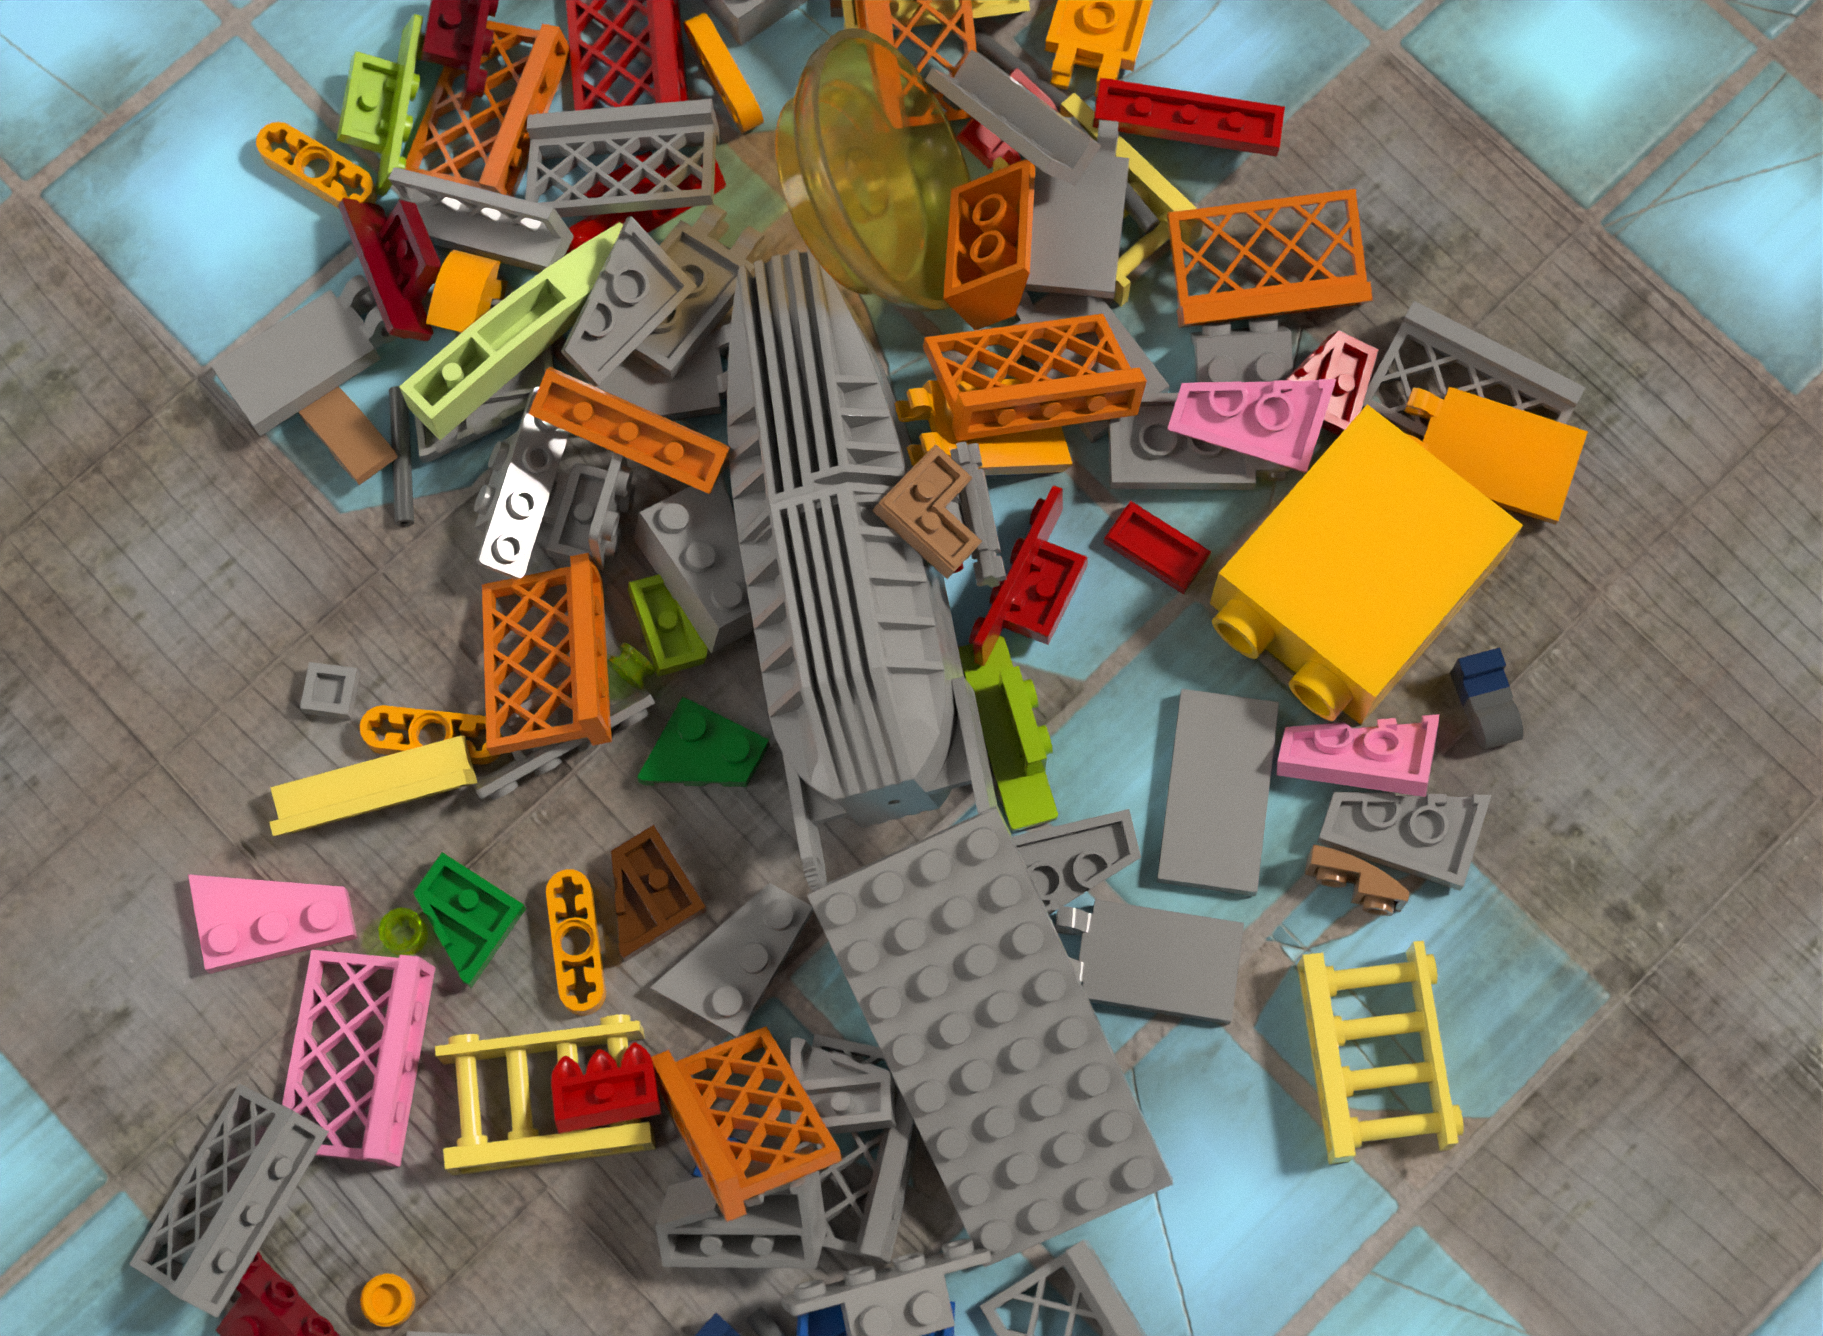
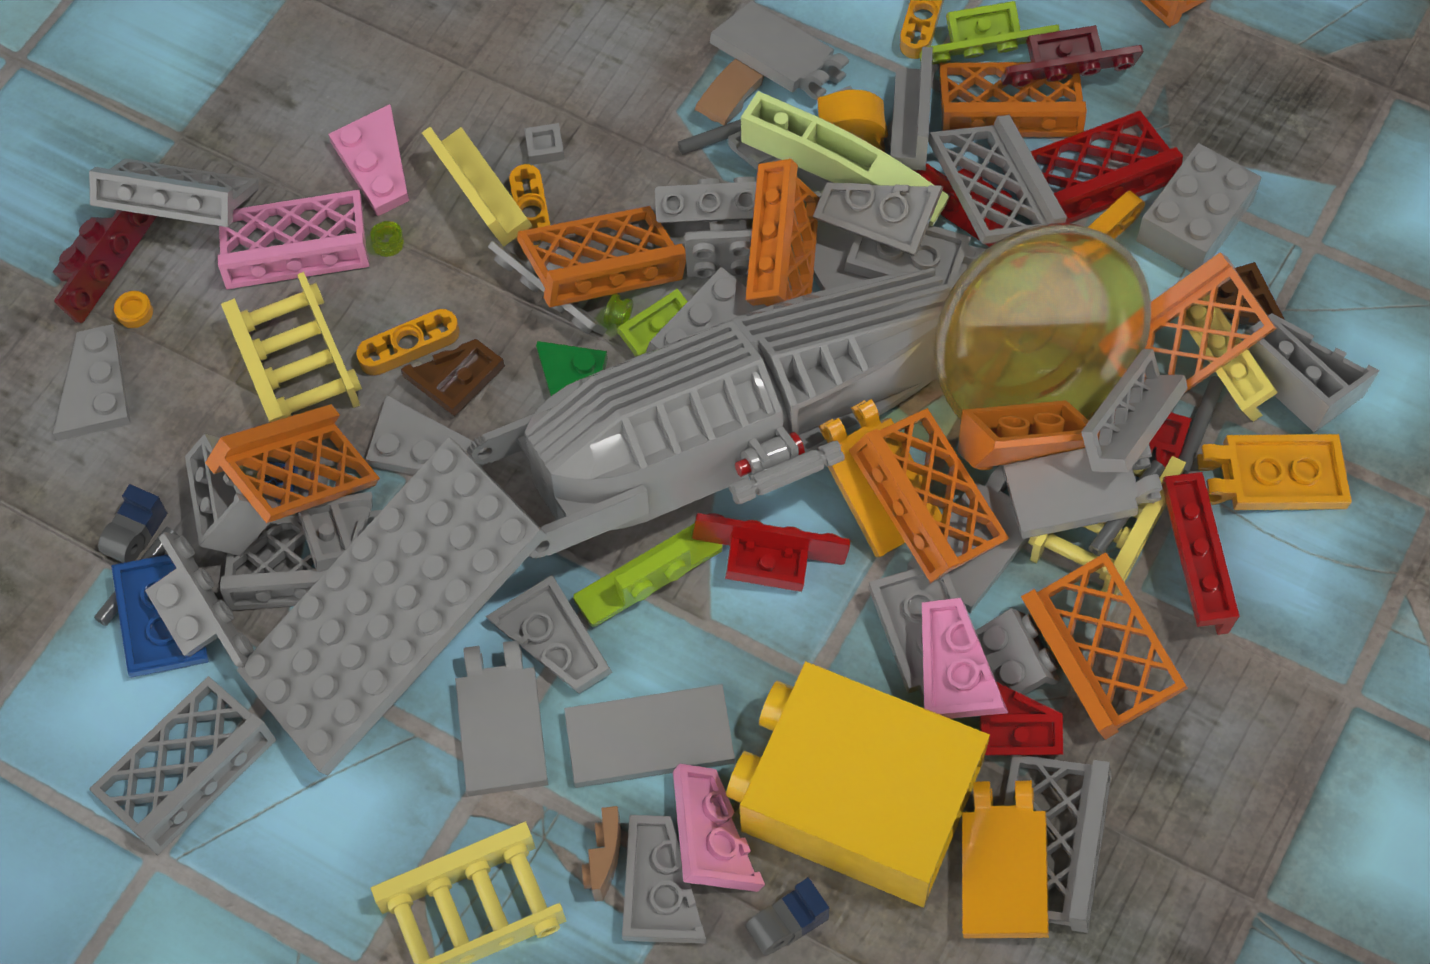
camera: 75 degrees right, 10 degrees down
(396, 262) = (860, 69): dark red bracket -> none
(466, 915) = (407, 270): green wing -> none
(605, 1091) = (296, 380): red plate -> none
(919, 512) = (764, 418): medium nougat tile -> none
(1157, 547) = (836, 635): red tile -> none

